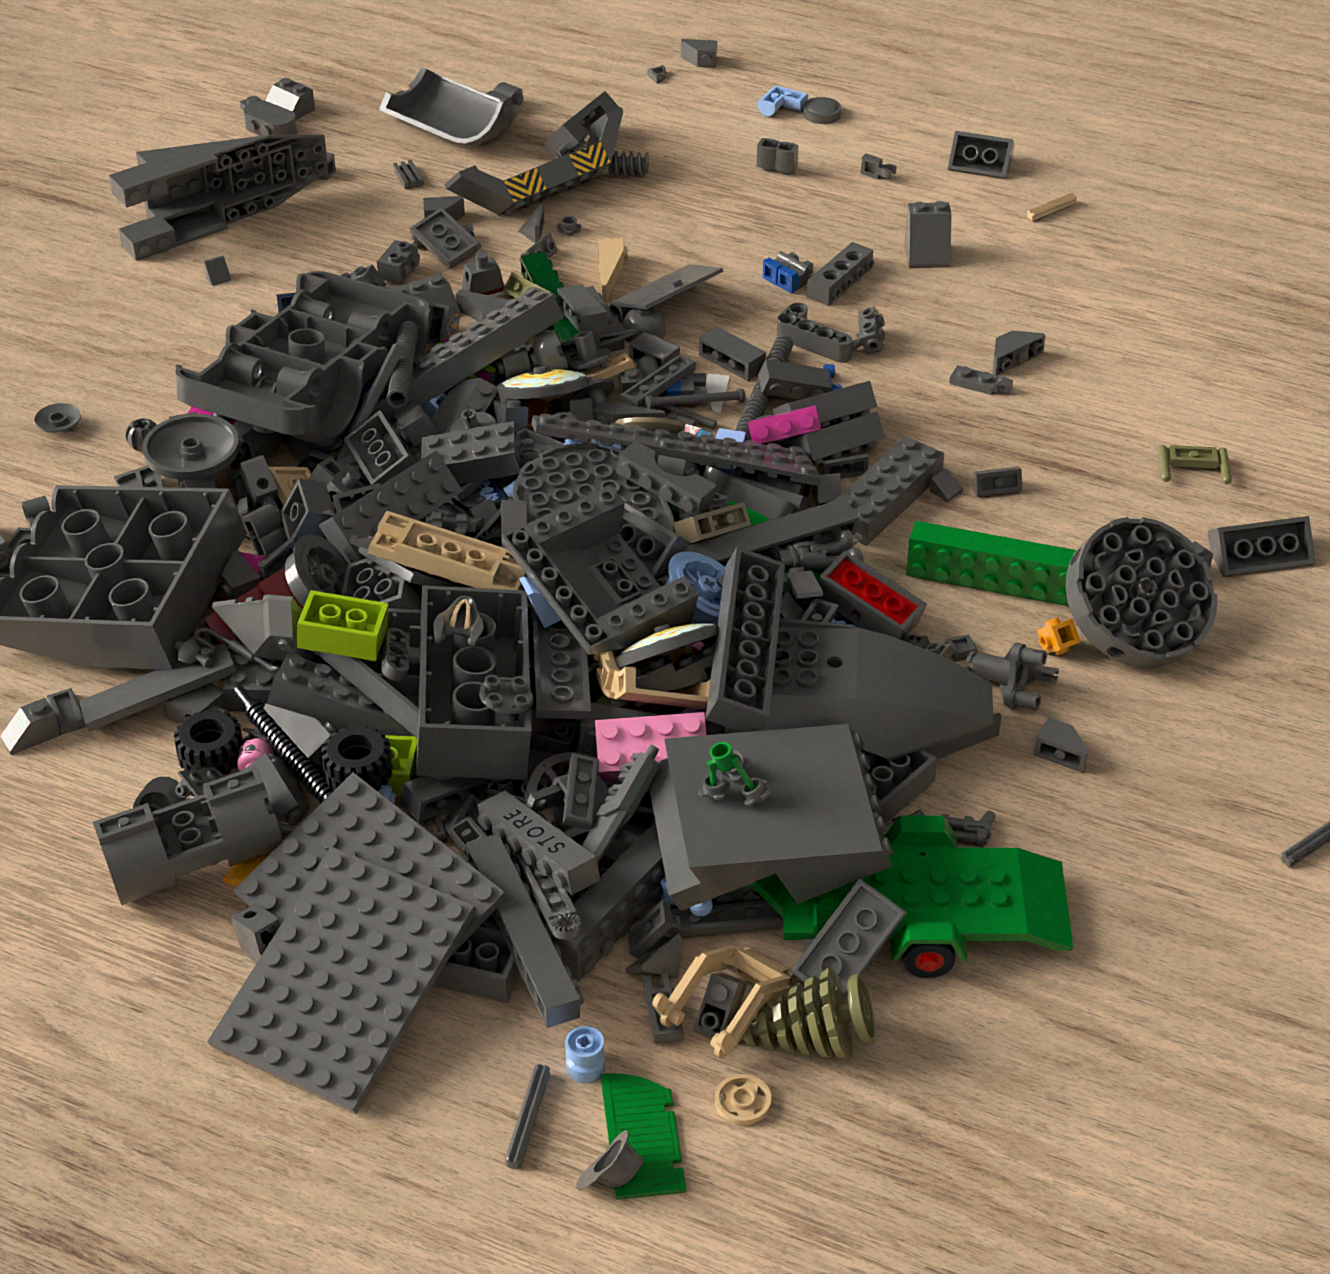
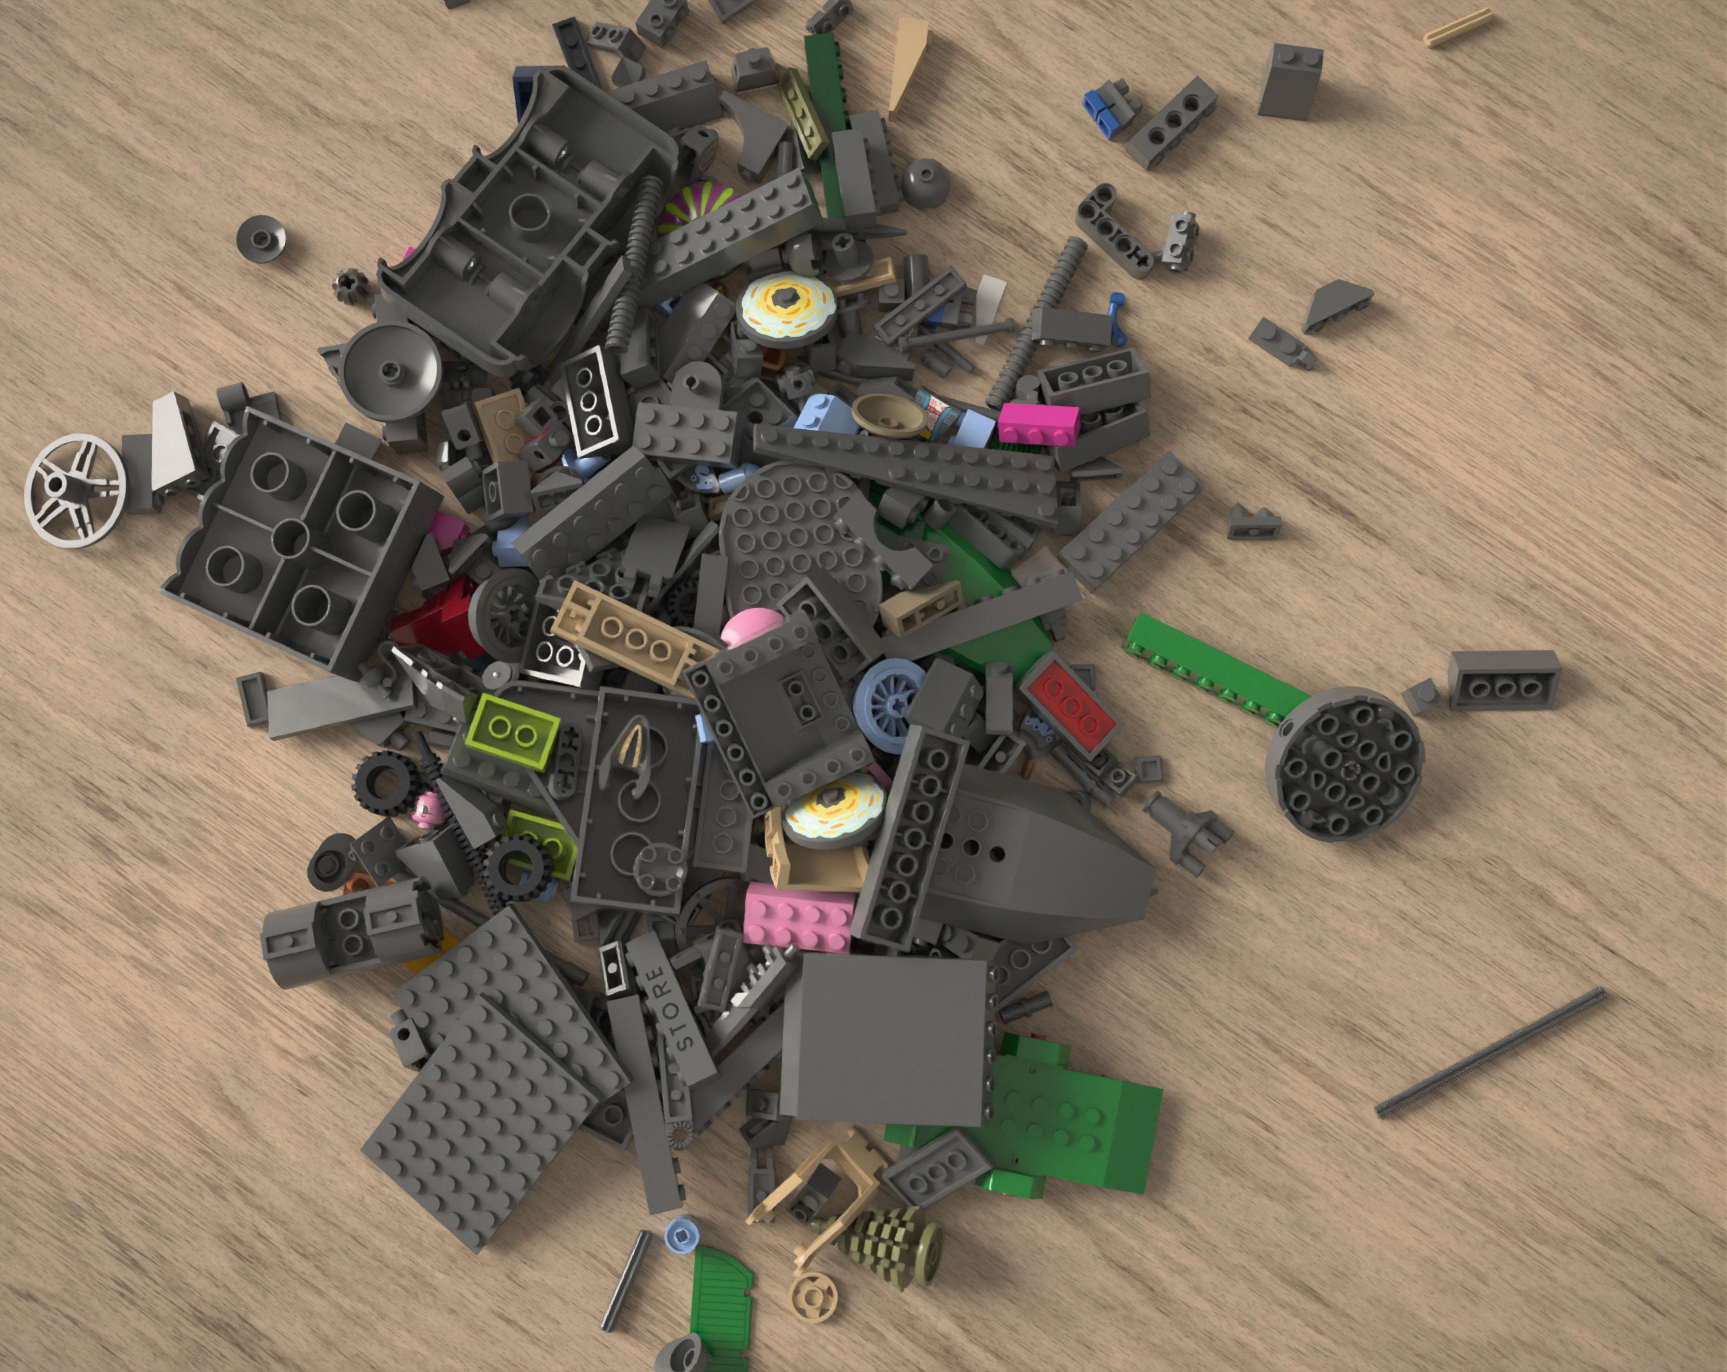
camera: 10 degrees right, 40 degrees up
(30, 727) = (219, 723): dark grey slope -> none
(652, 346) = (929, 236): dark grey brick -> none
(663, 289) = (961, 133): dark grey door -> none
(731, 353) = (1016, 252): dark grey brick -> none
(735, 766) = (847, 1029): plant -> none
(816, 555) = (1019, 642): dark grey piece -> none
(945, 485) = (1197, 520): dark grey slope -> none
(973, 831) = (1095, 1023): dark grey piece -> none
(1058, 635) = (1248, 784): light orange brick -> none
(1061, 745) = (1208, 930): dark grey slope -> none
(1194, 457) = (1478, 523): olive plate -> none

